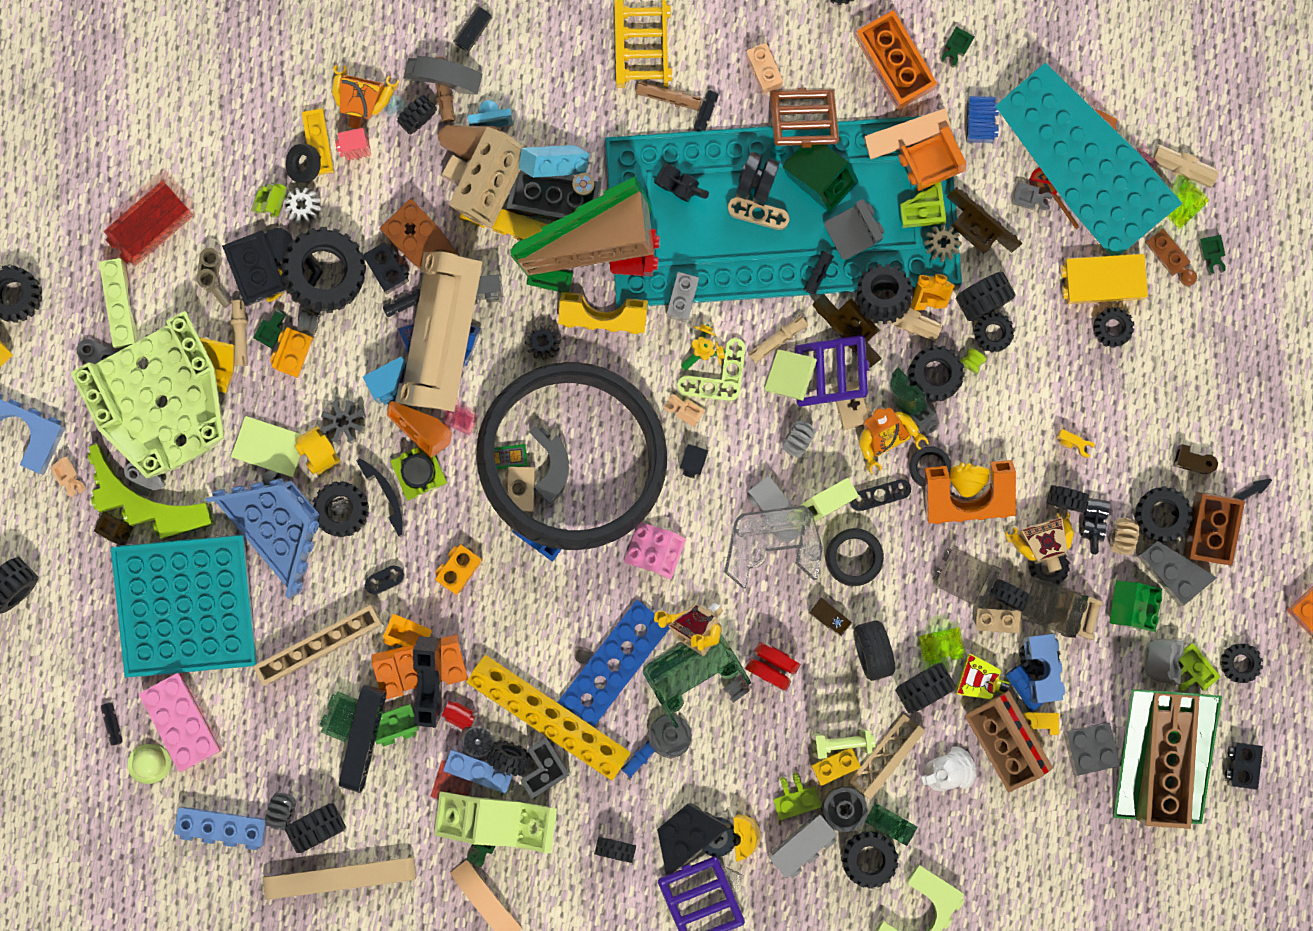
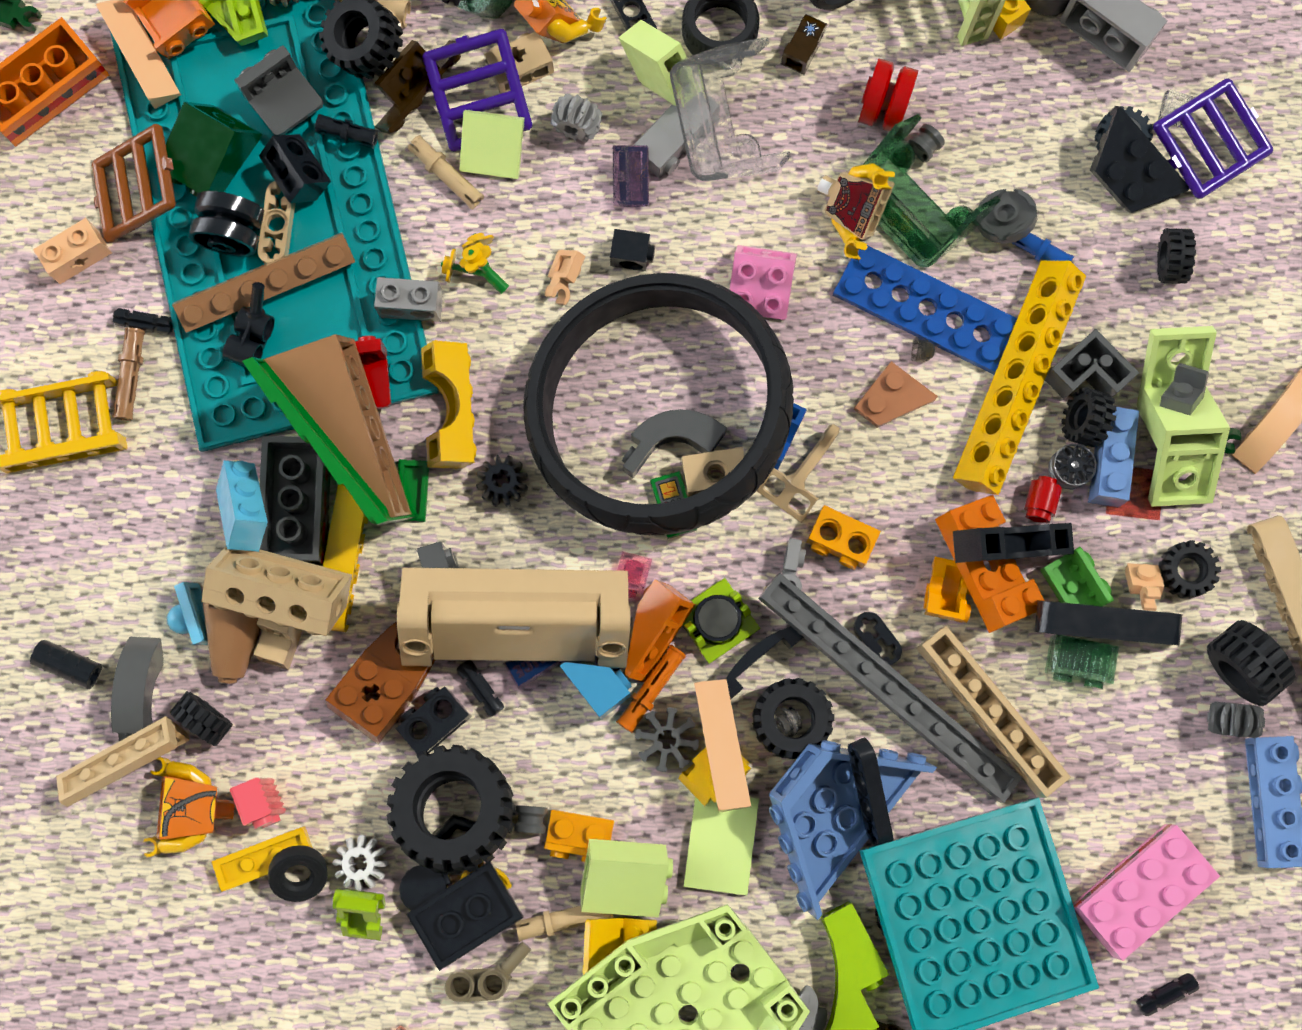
camera: 100 degrees left, 5 degrees down
(149, 763) = (1210, 927): yellowish green hat -> none
(256, 376) = (625, 878): none -> yellowish green brick
(268, 331) = (555, 875): dark green plate -> none
(269, 476) = (767, 830): dark grey hinge -> none
(278, 547) = (870, 791): none -> black beam
(329, 455) = (722, 745): none -> light nougat slope
(347, 578) = (890, 688): none -> dark grey plate
(380, 418) = (650, 689): none -> orange pin
(380, 816) = (1206, 564): none -> black tyre
(386, 773) = (1146, 582): none -> light nougat plate
(394, 105) = (193, 755): clear light blue tile -> none
(397, 58) = (119, 760): none -> tan fence
(445, 102) = (177, 684): medium nougat pin -> none
(449, 532) = (793, 558): none -> light grey plate
(503, 544) = (796, 482): none -> tan piece
(509, 825) = (1185, 390): none -> dark grey bracket
(553, 627) = (893, 396): none -> nougat wing
(583, 184) = (269, 457): tan tile -> none
(716, 203) = (276, 276): none -> medium nougat plate
(727, 379) = (512, 230): yellowish green beam -> none
(748, 470) = (630, 175): none -> clear purple slope
(749, 834) = (1119, 89): yellow cylinder -> none
(793, 232) = (294, 168): none -> black brick
(796, 802) = (1053, 46): lime hinge -> none

